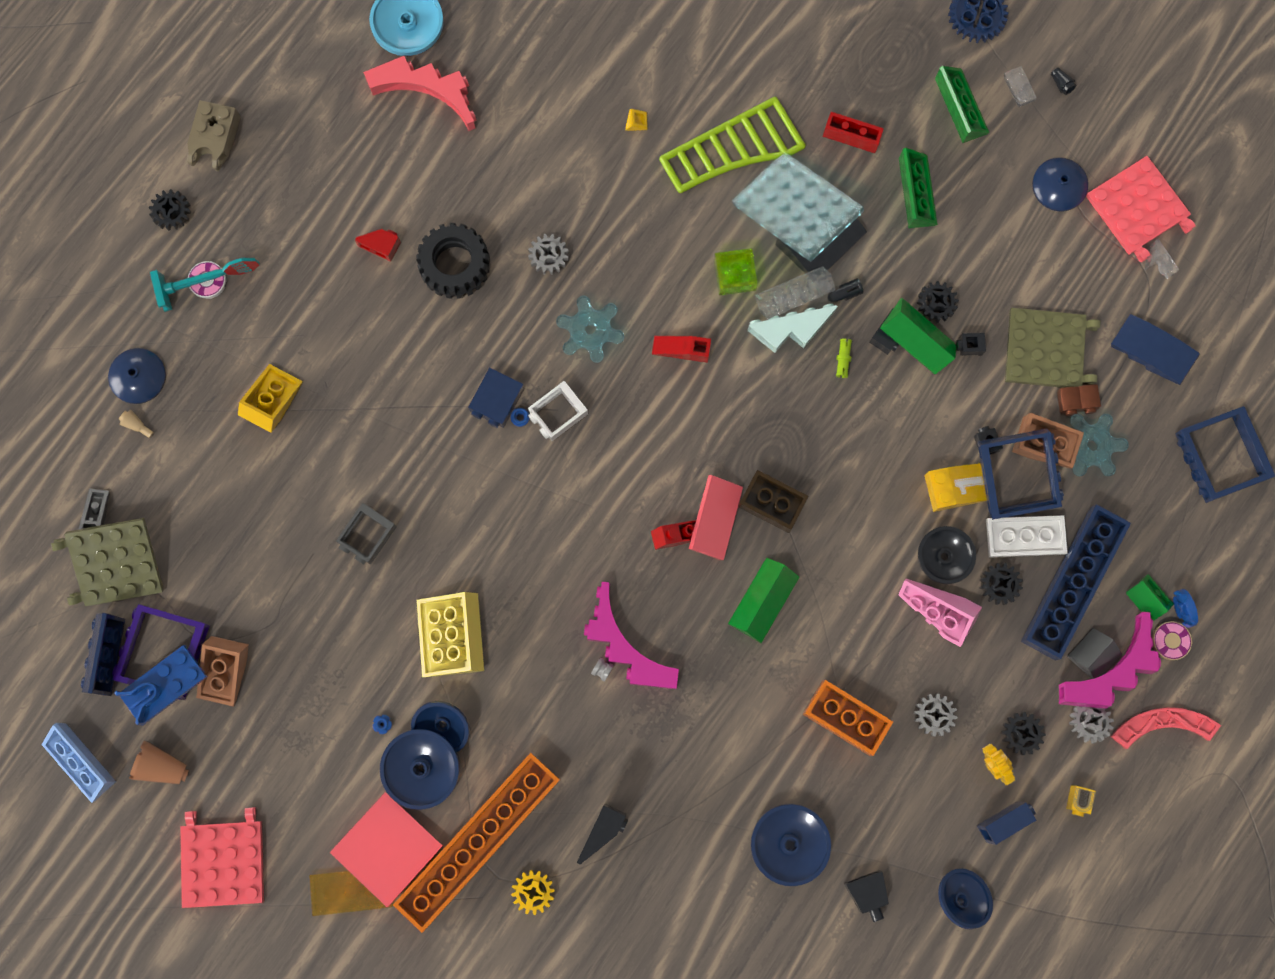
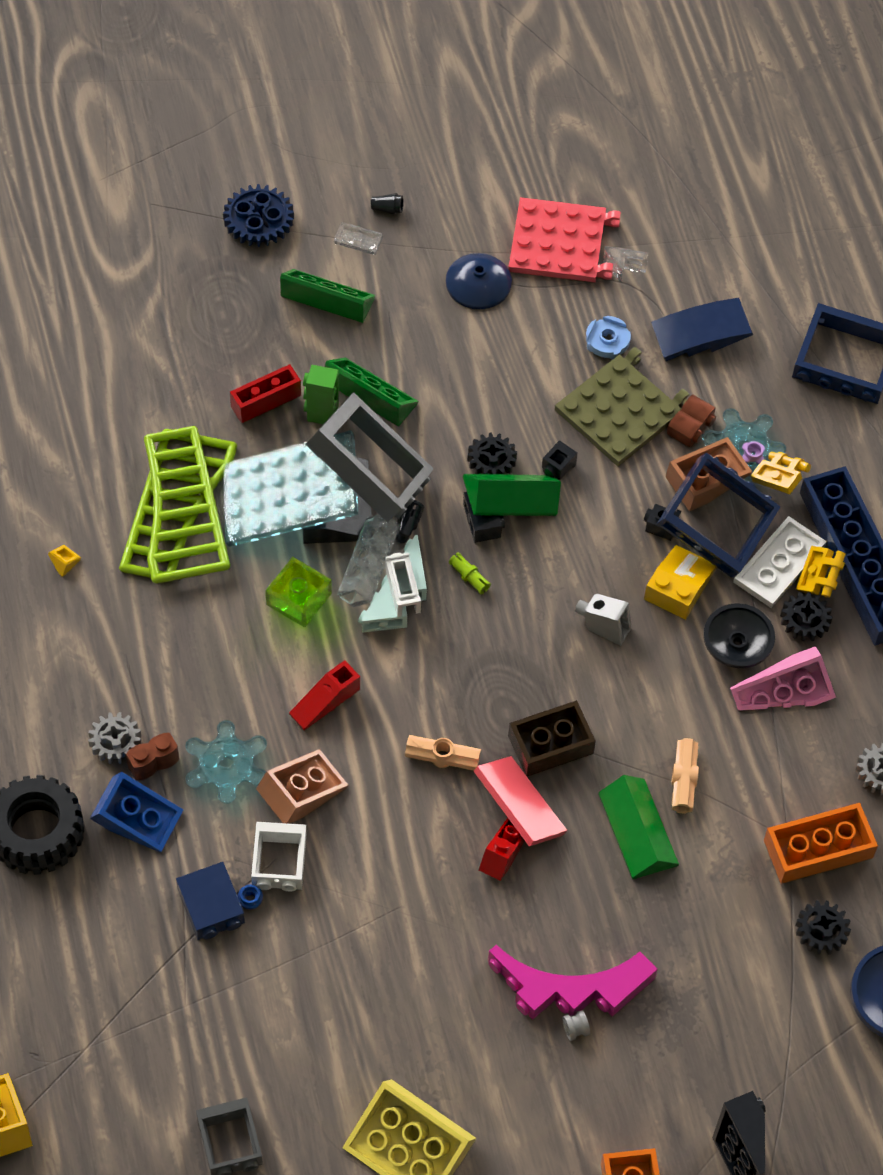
camera: 50 degrees left, 20 degrees down
(513, 309) = (136, 812): none -> blue slope
(559, 286) = (149, 757): none -> copper brick
(613, 384) = (300, 786): none -> nougat slope
(702, 435) = (428, 750): none -> light nougat piece
(713, 147) = (159, 515): none -> lime bar
(788, 770) = (821, 929): none -> black gear
(804, 310) = (401, 561): none -> white window
(822, 599) = (685, 776): none -> light nougat piece
(832, 233) = (355, 473): none -> dark grey window
(879, 166) = (321, 393): none -> bright green brick
(885, 464) = (606, 617): none -> light grey torso
(1039, 563) = (815, 570): none -> yellow plate
(1083, 486) = (778, 477): none -> yellow plate
(1087, 306) = (608, 348): none -> light blue plate
(1089, 452) = (753, 447): none -> lavender plate

